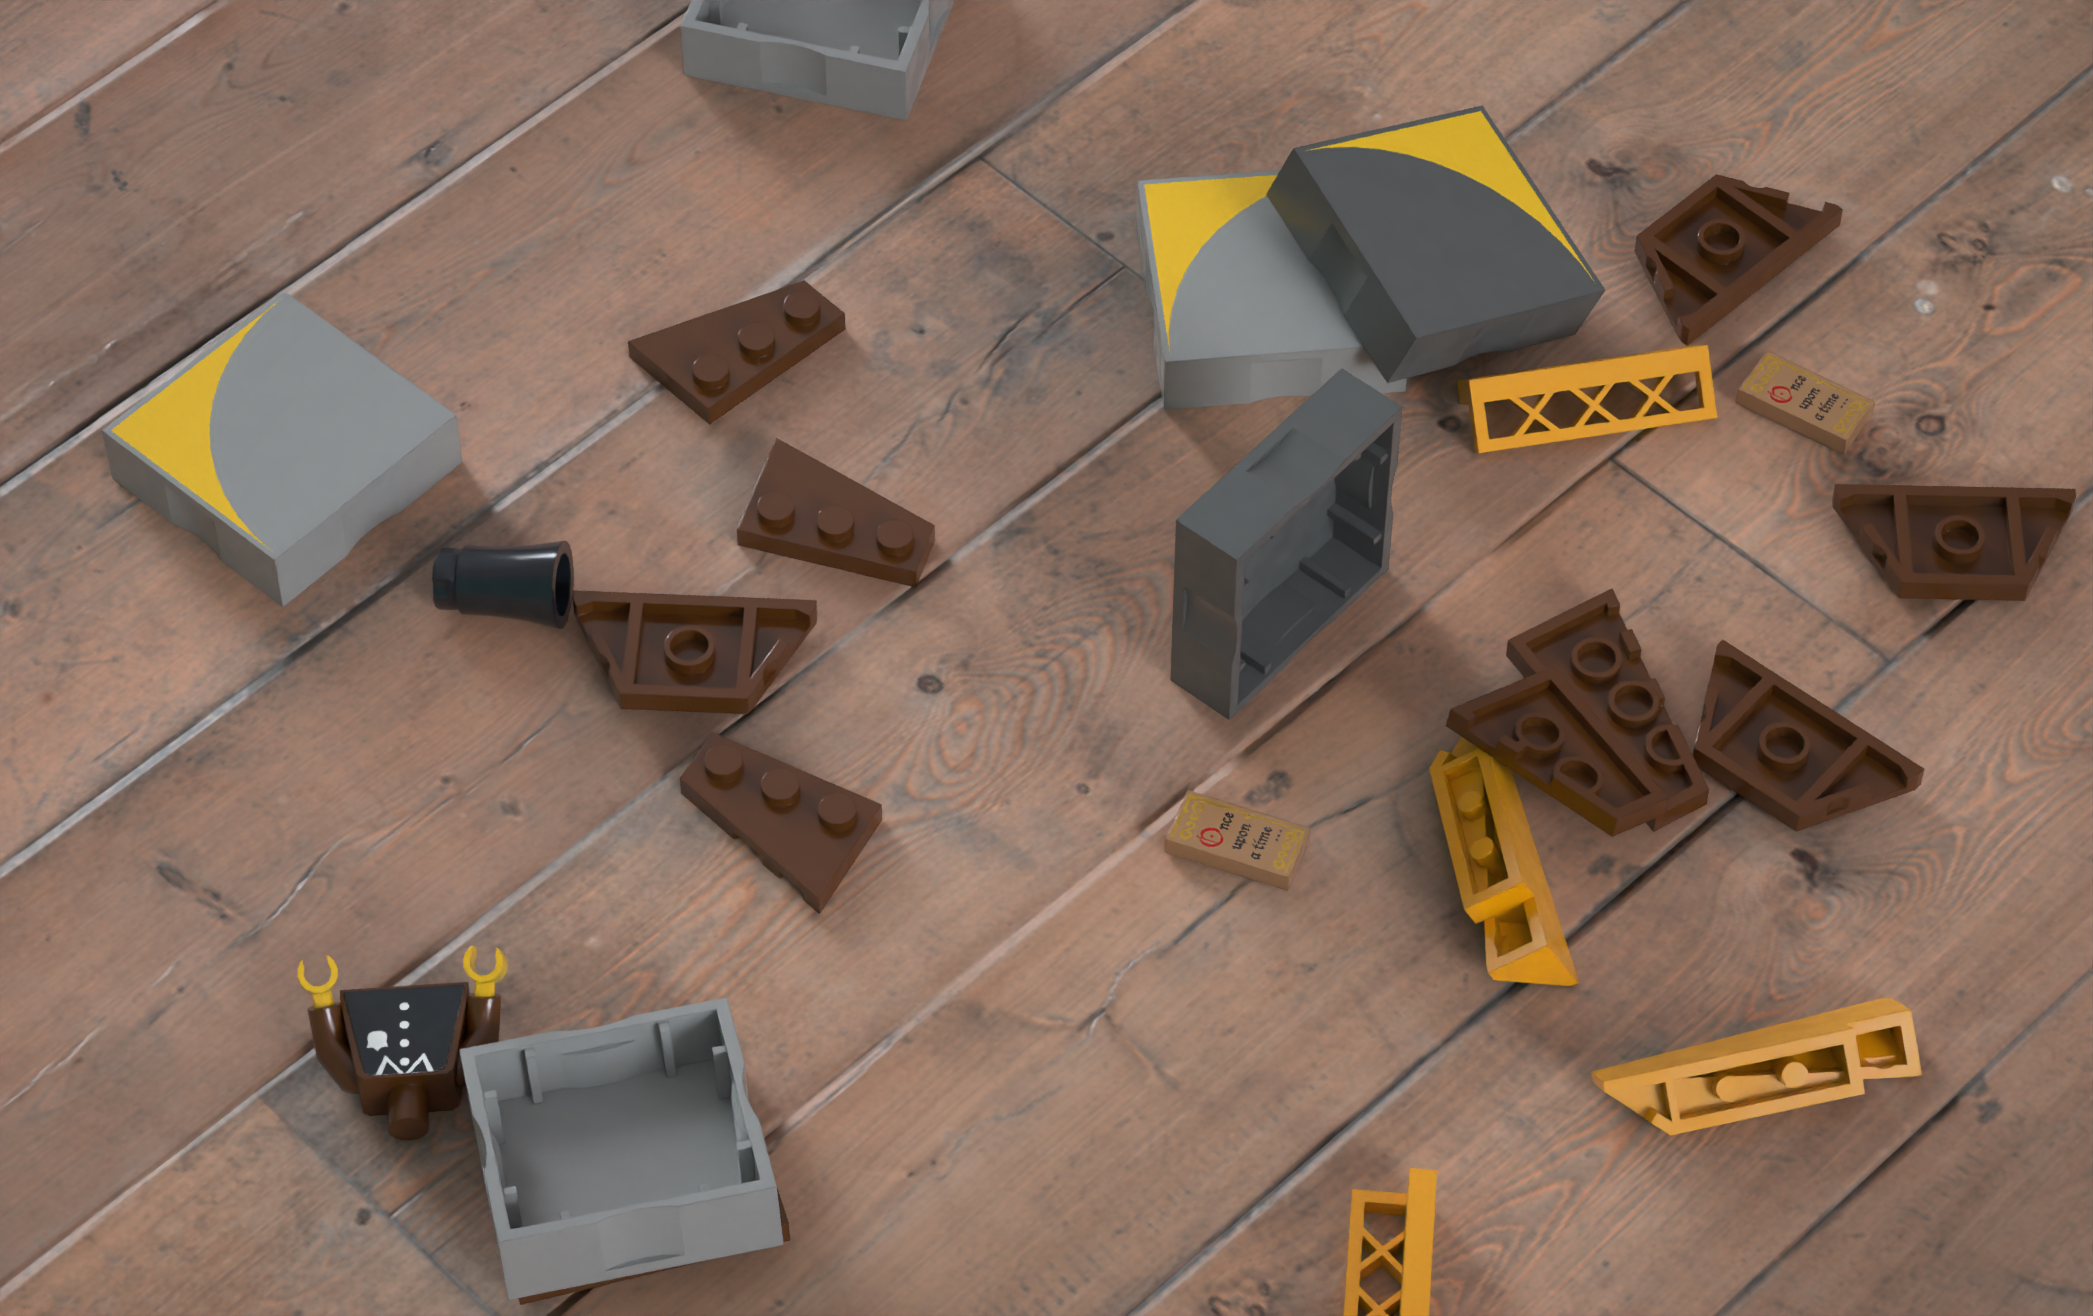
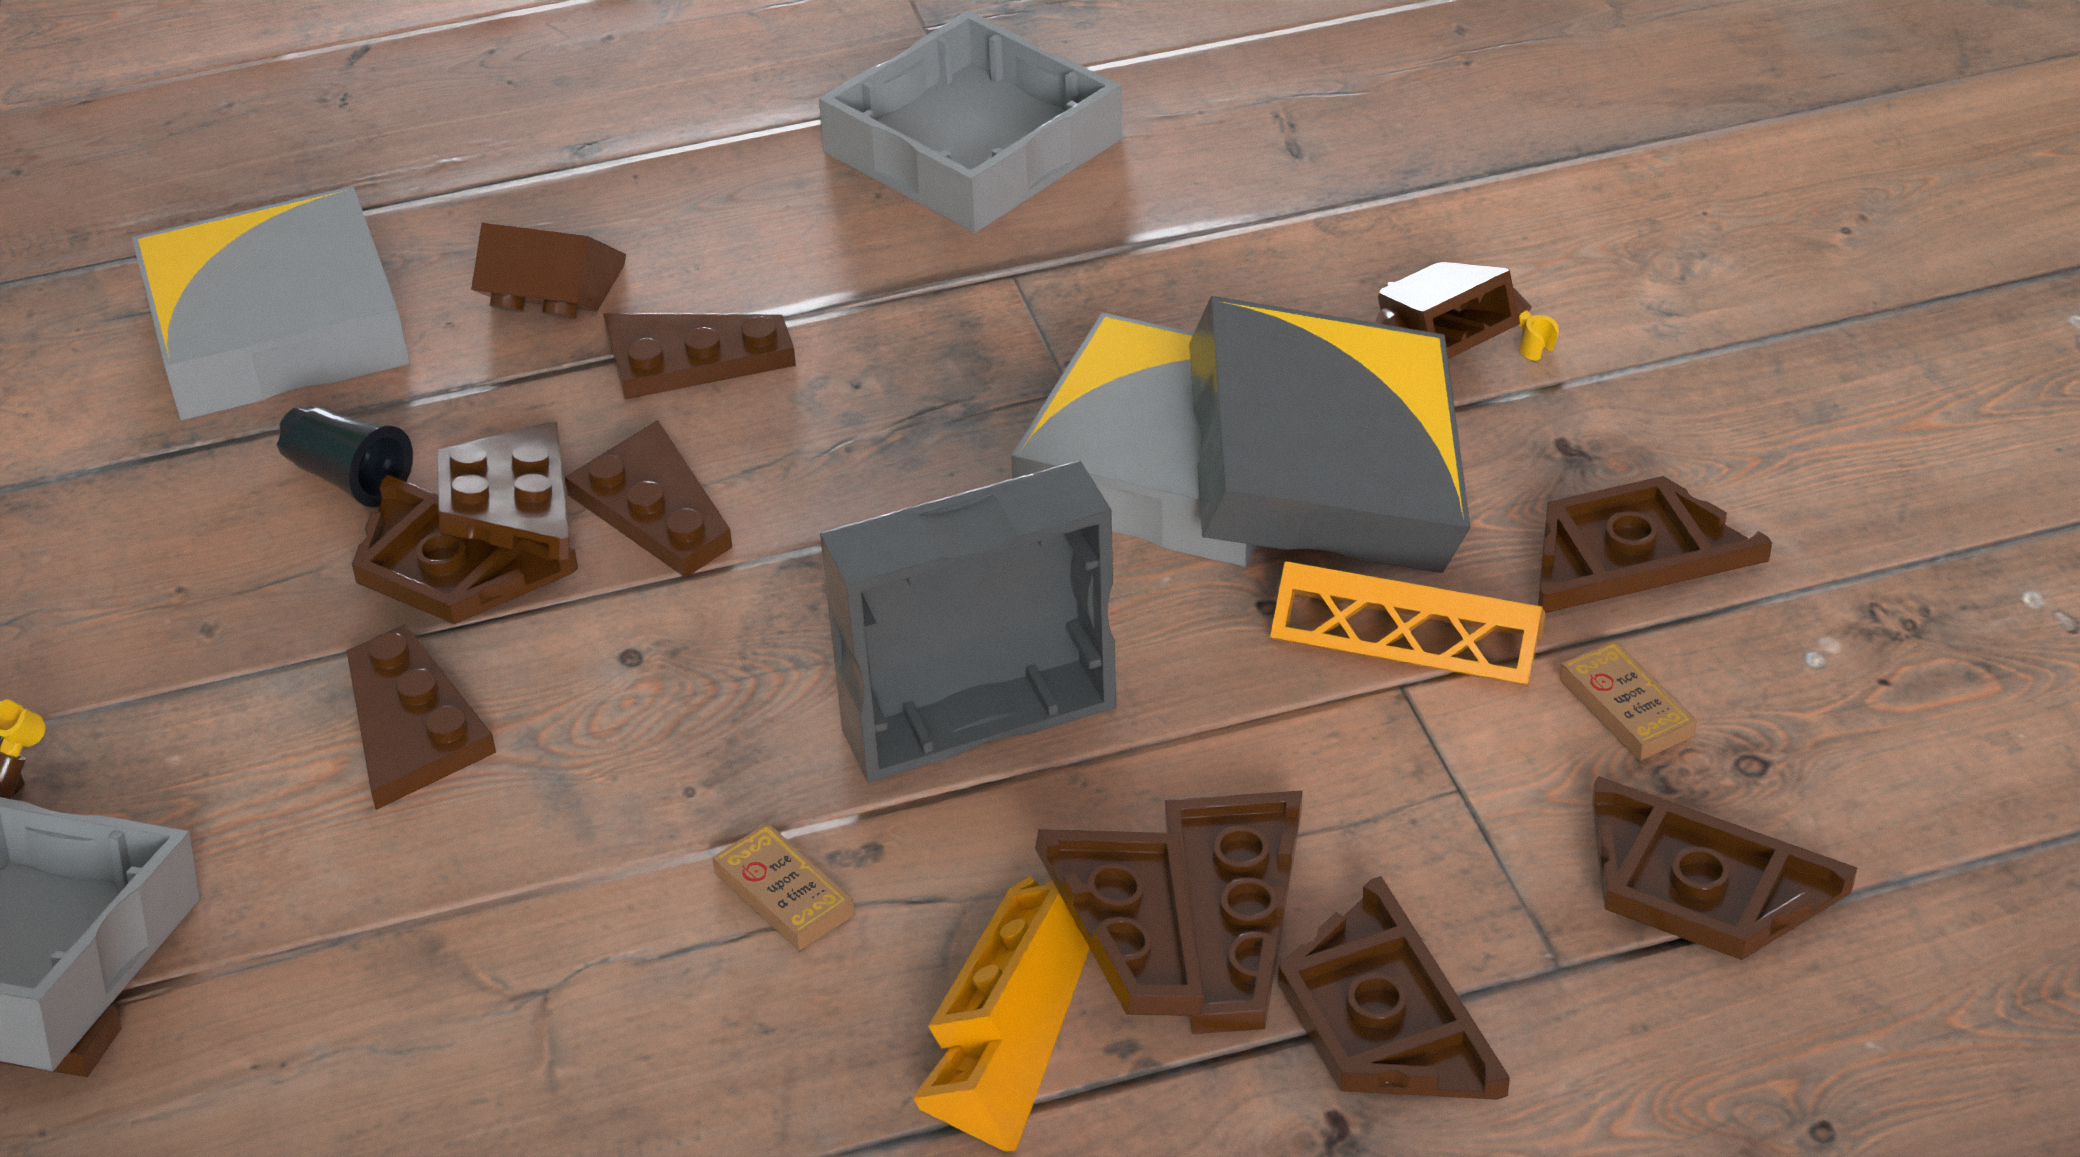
camera: 30 degrees right, 10 degrees down
(538, 316) = (545, 269): none -> reddish brown slope
(706, 565) = (505, 489): none -> wing
(1436, 63) = (1466, 306): none -> reddish brown torso

